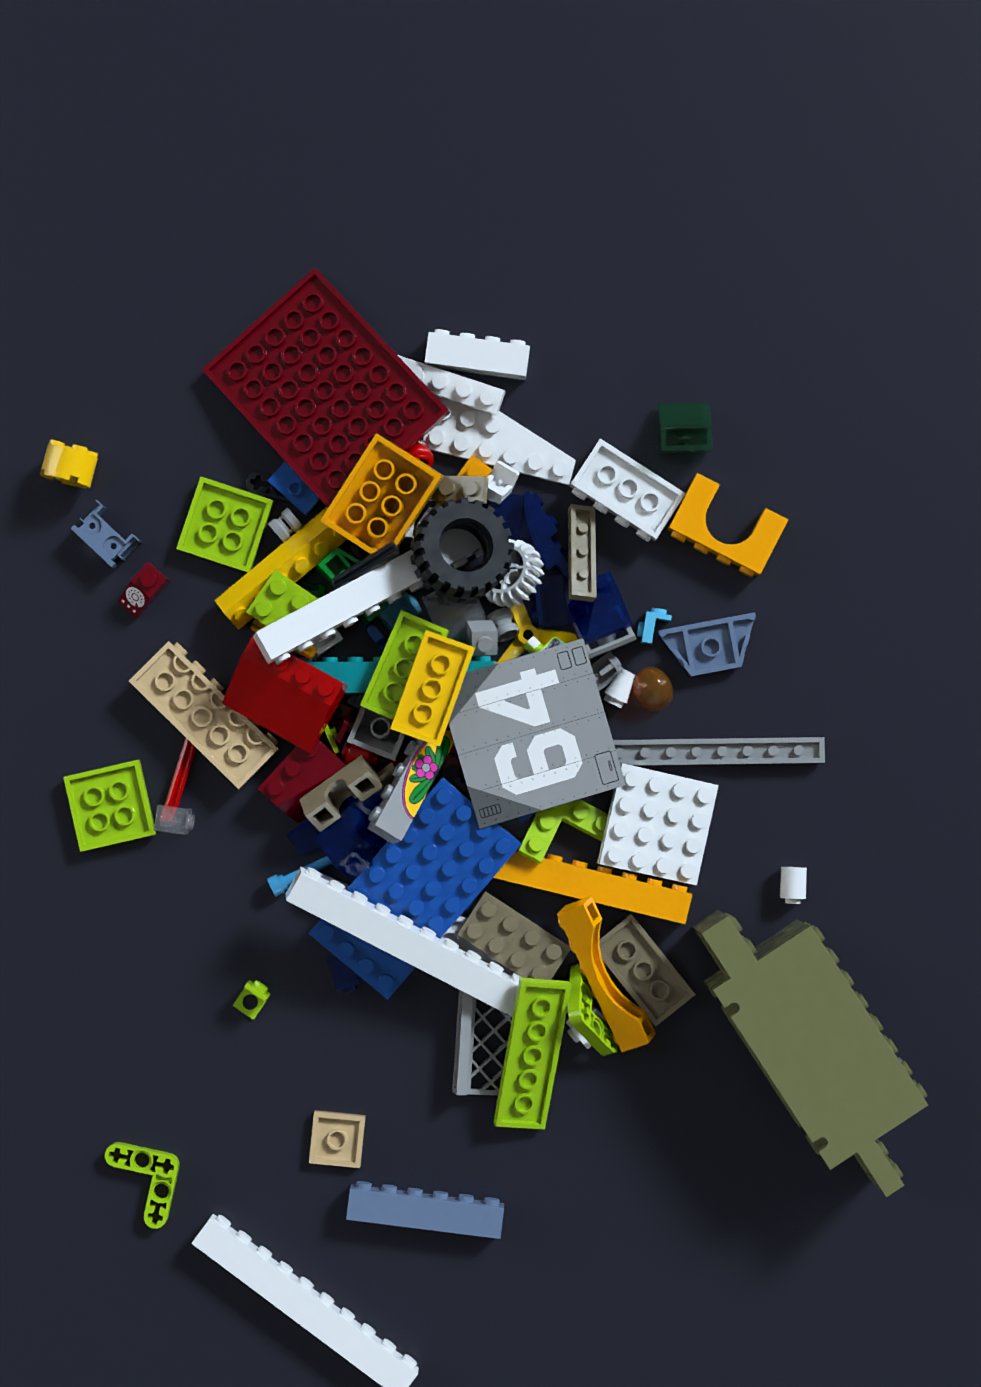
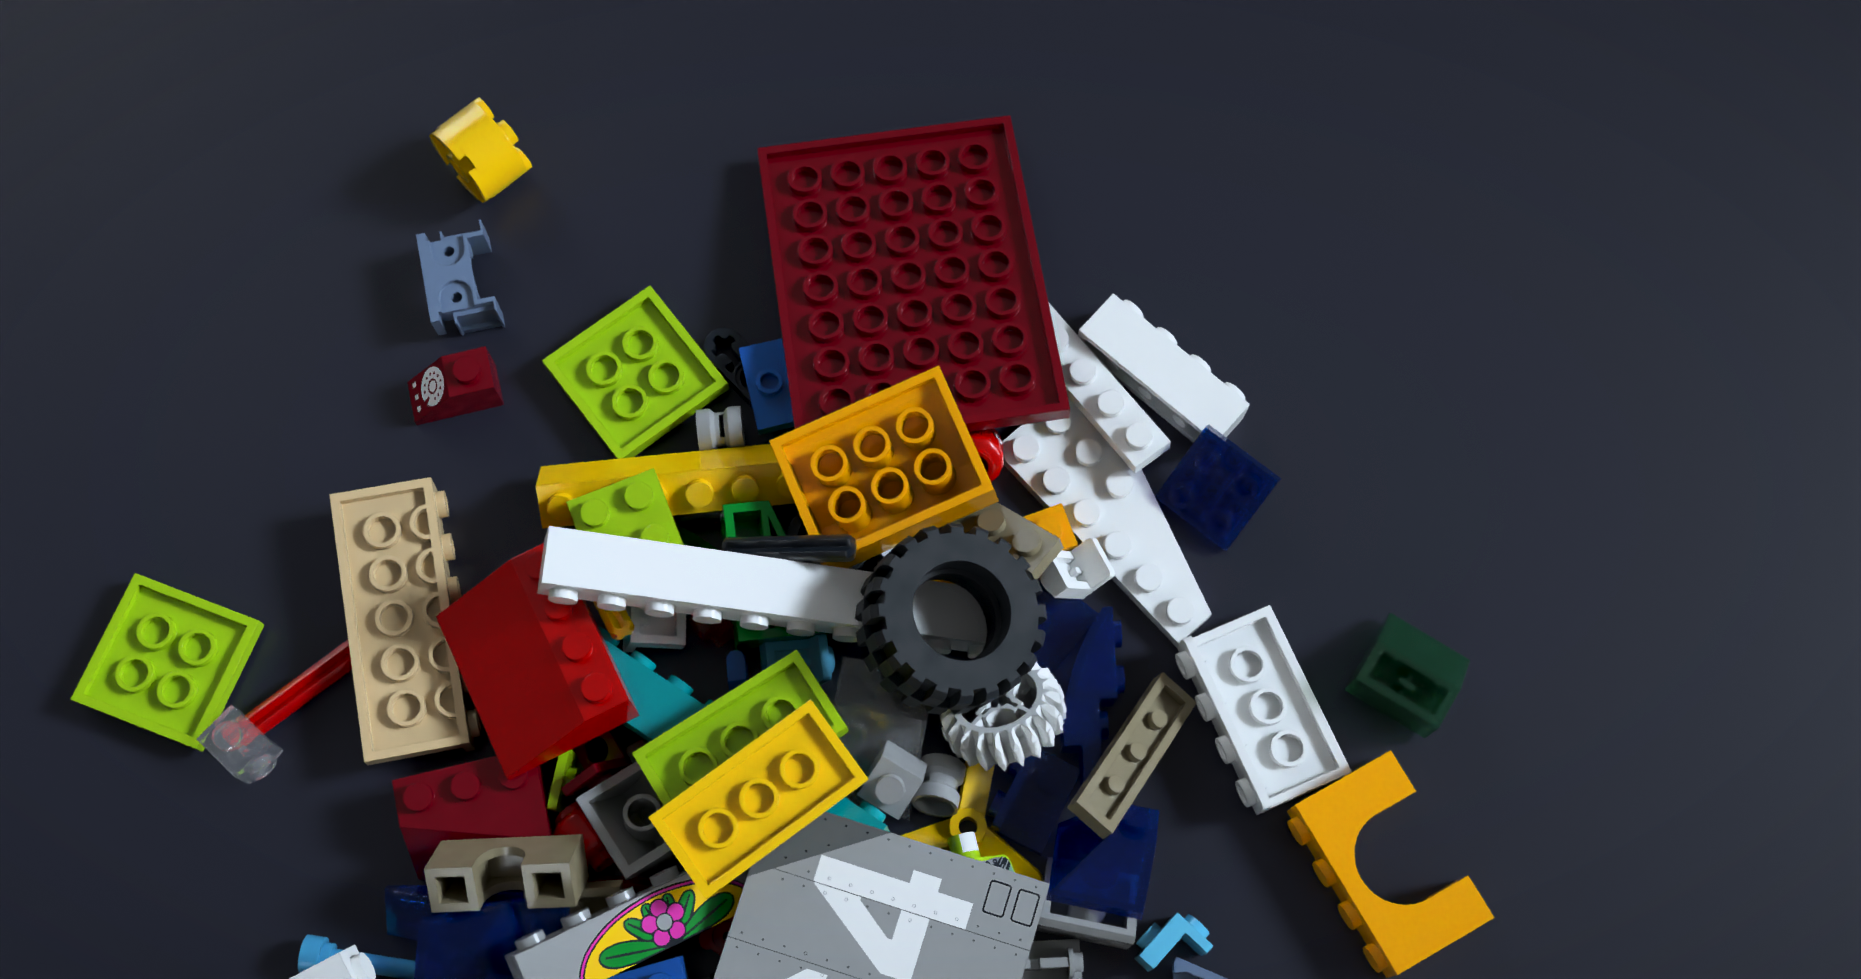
camera: 35 degrees right, 15 degrees down
(540, 397) = (1217, 487): none -> clear blue tile

